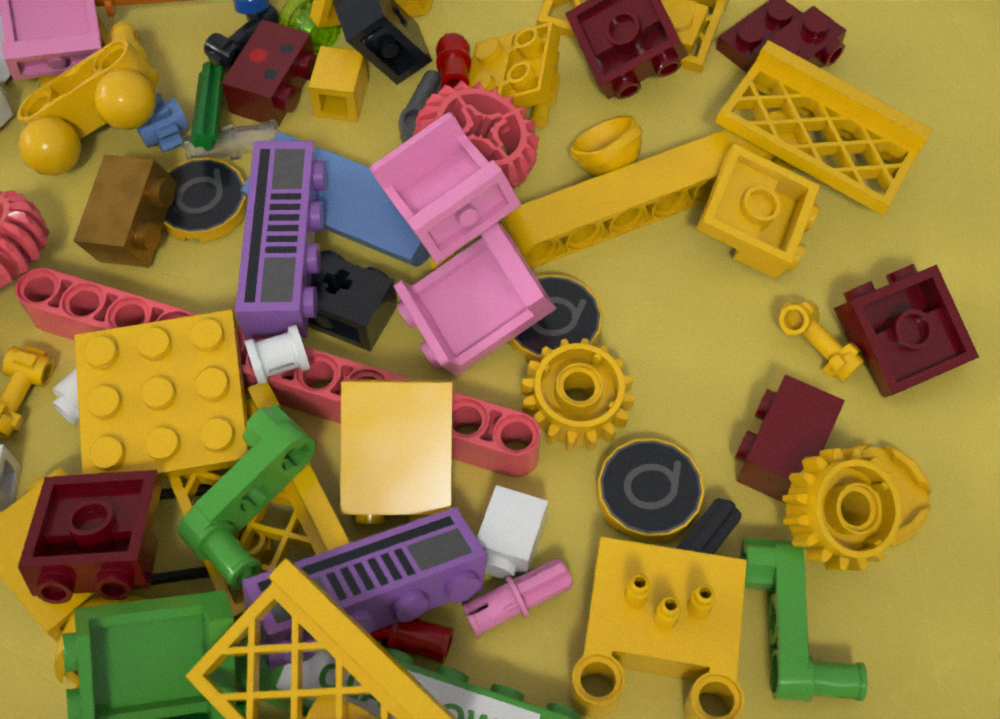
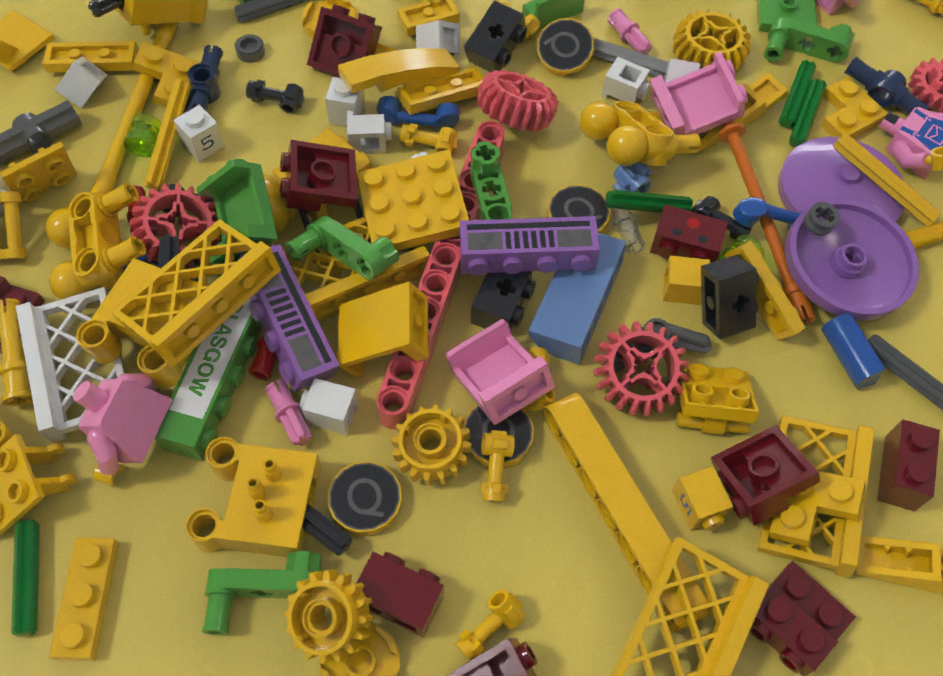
camera: 85 degrees right, 0 degrees up
(126, 211) = (554, 168): pearl gold brick -> none
(137, 289) = (488, 176): none -> bright green beam
(277, 354) = (439, 252): white bush -> none
(444, 187) = (569, 335): bright pink panel -> none
(453, 59) = (718, 353): red pin -> none
(585, 313) = (498, 446): none -> yellow bar
(608, 145) = (651, 463): yellow piece -> none
(652, 101) = (702, 499): none -> yellow brick
(760, 211) = (597, 576): yellow plate -> none

